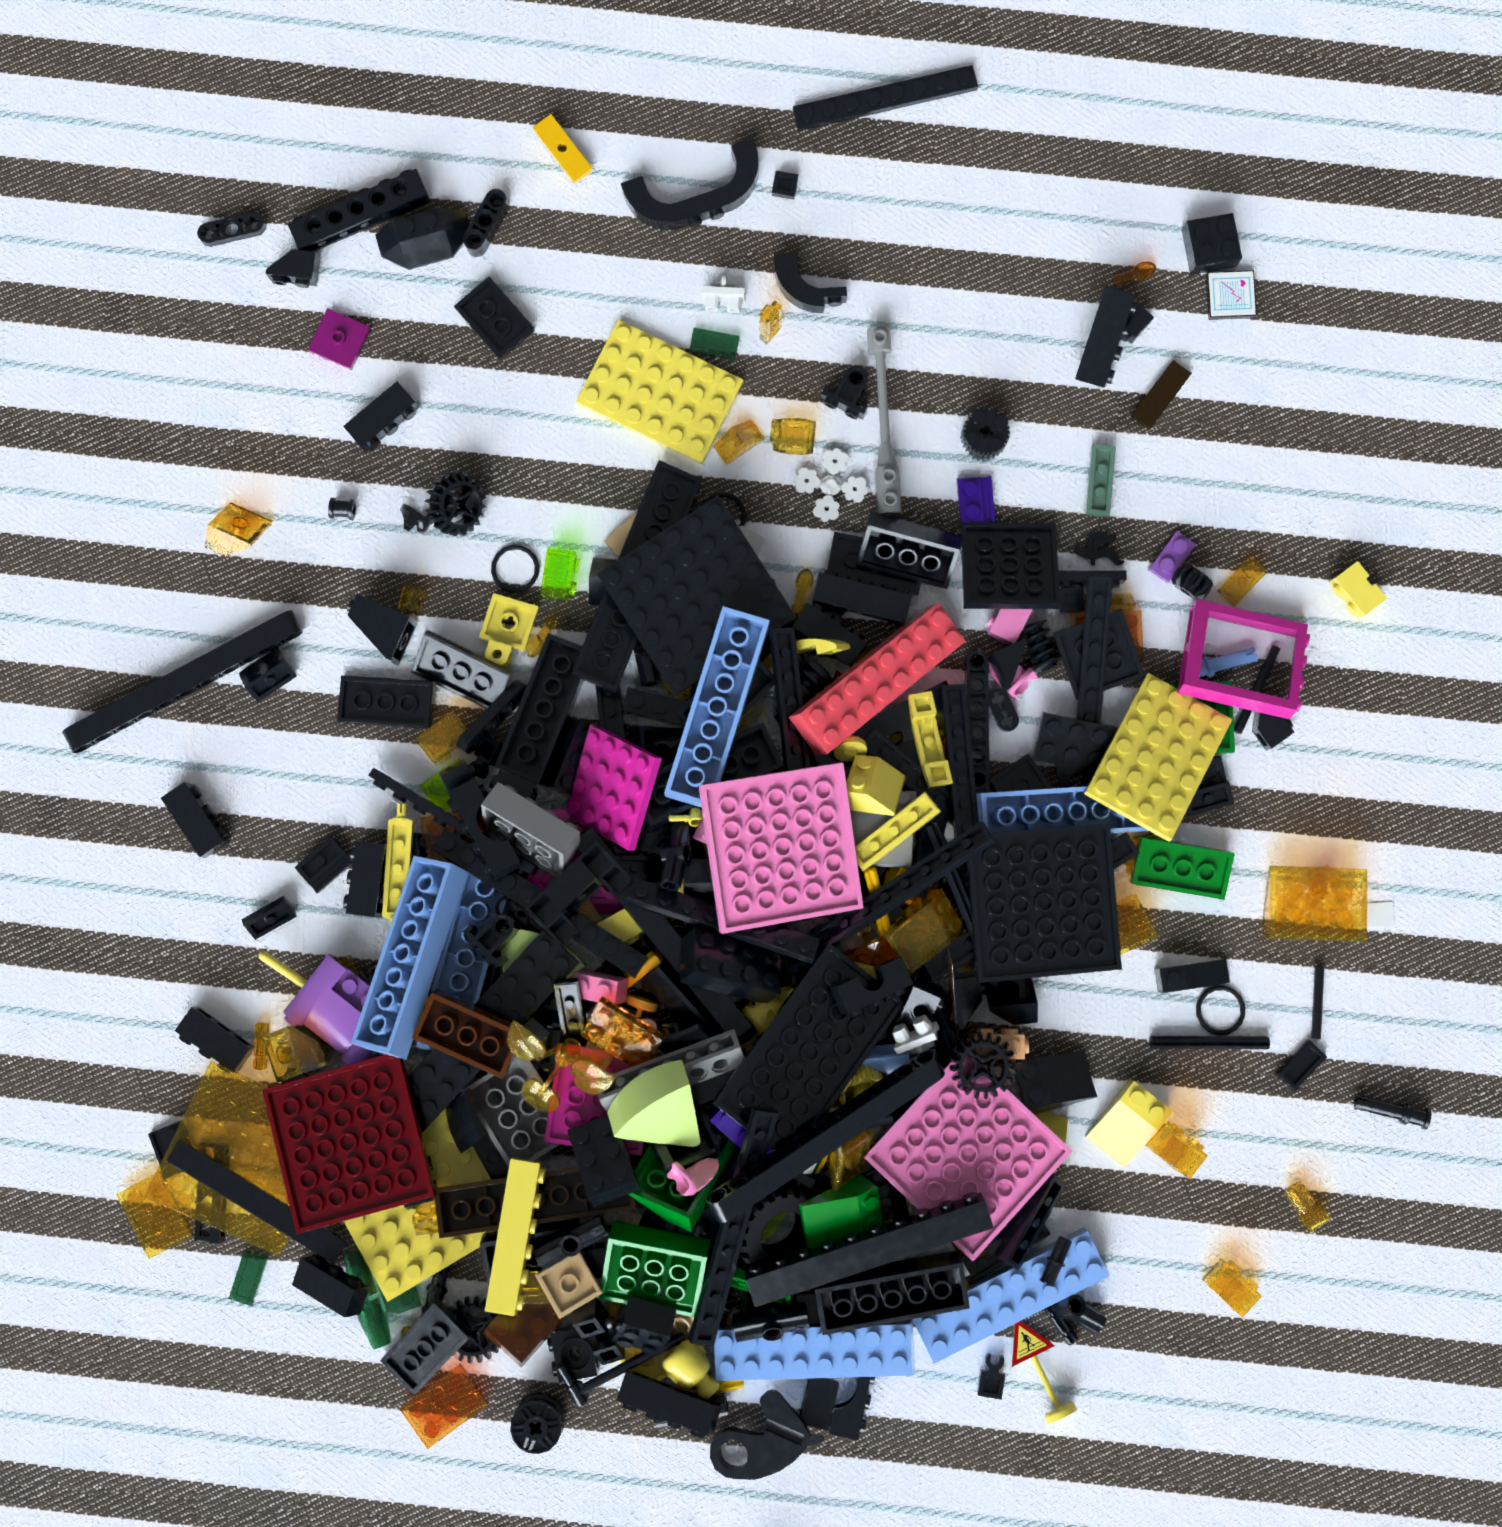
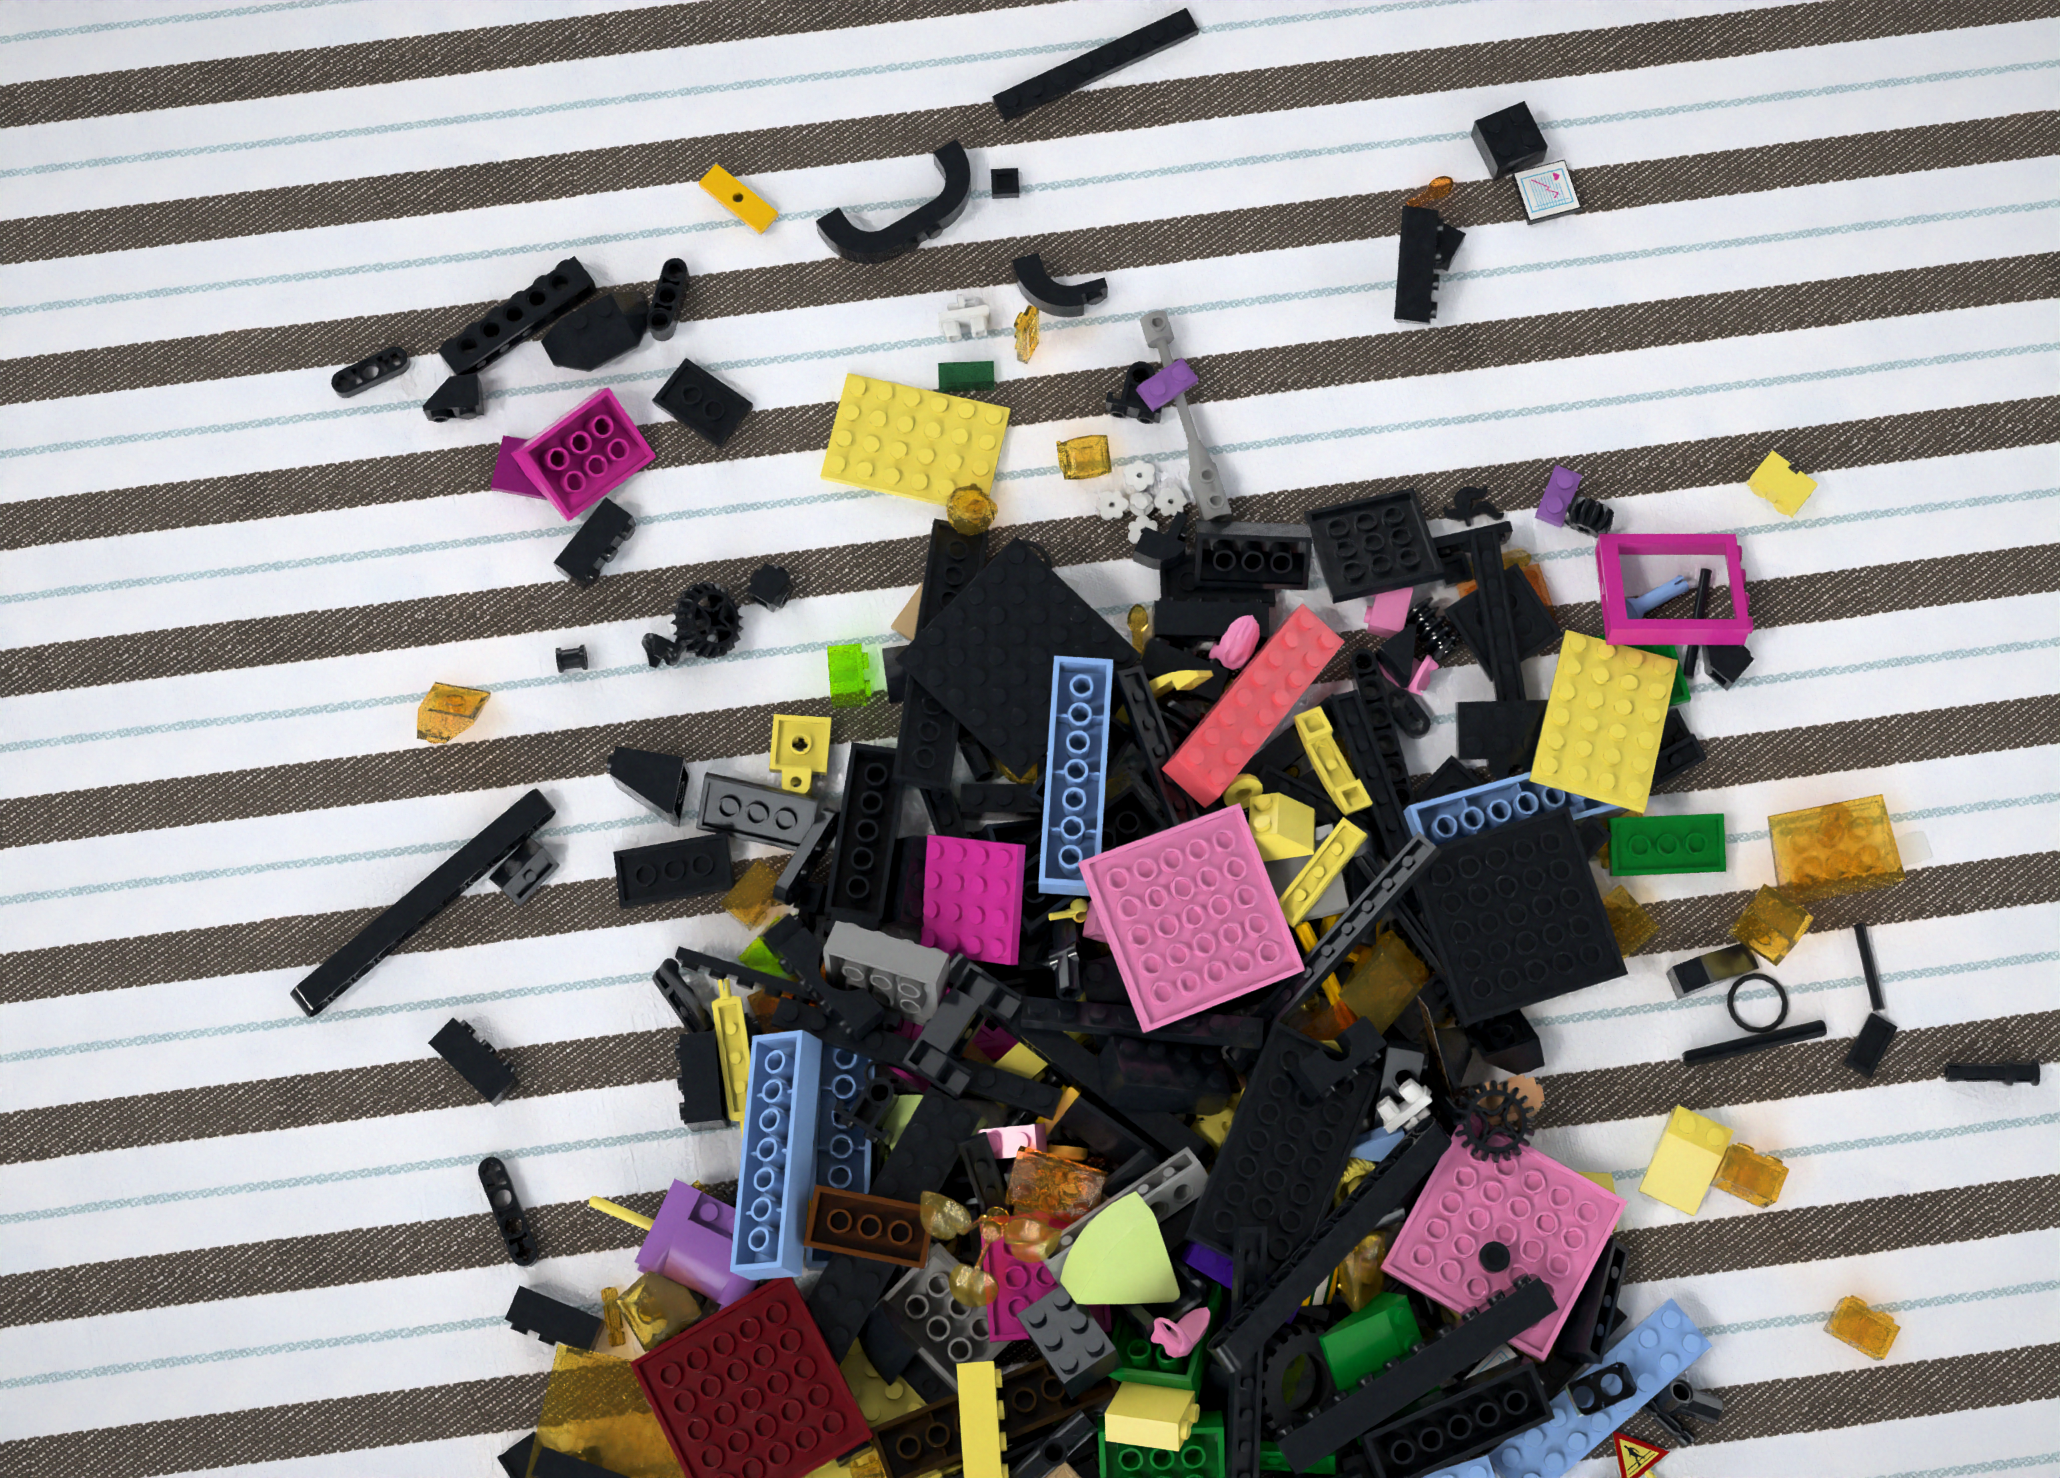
camera: 15 degrees left, 10 degrees down
(202, 943) = (512, 1210): none -> black beam
(269, 917) = (590, 1158): black plate -> none
(324, 864) = (643, 1079): black plate -> none
(369, 808) = (681, 997): none -> black plate
(388, 340) = (584, 454): none -> dark pink slope
(409, 598) = (675, 742): clear yellow tile -> none
(501, 552) = (786, 658): black piece -> none
(514, 486) = (770, 587): none -> black brick
(536, 642) = (839, 760): clear yellow piece -> none
(652, 1237) = (1151, 1416): none -> light yellow brick
(689, 460) = (970, 510): none -> clear yellow hair
(738, 441) = (1020, 478): clear yellow slope -> none
(837, 530) = (1162, 550): none -> black brick
(875, 391) = (1167, 384): none -> medium lavender plate
(878, 623) = (1237, 643): none -> bright pink piece
(954, 1171) = (1494, 1257): none -> black tile
(975, 500) = (1313, 482): dark purple plate -> none
(989, 422) = (1308, 392): black brick -> none
(1017, 1302) = (1628, 1388): none -> black piece
(1054, 1081) = (1583, 1130): black slope -> none
(1056, 1261) = (1643, 1339): black axle -> none
(1100, 480) = (1452, 429): sand green plate -> none
(1161, 395) = (1496, 319): dark brown tile -> none
(1242, 581) = (1646, 504): clear yellow plate -> none
(1248, 953) = (1770, 924): none -> clear yellow brick
(1310, 1212) = (1930, 1216): clear yellow piece -> none

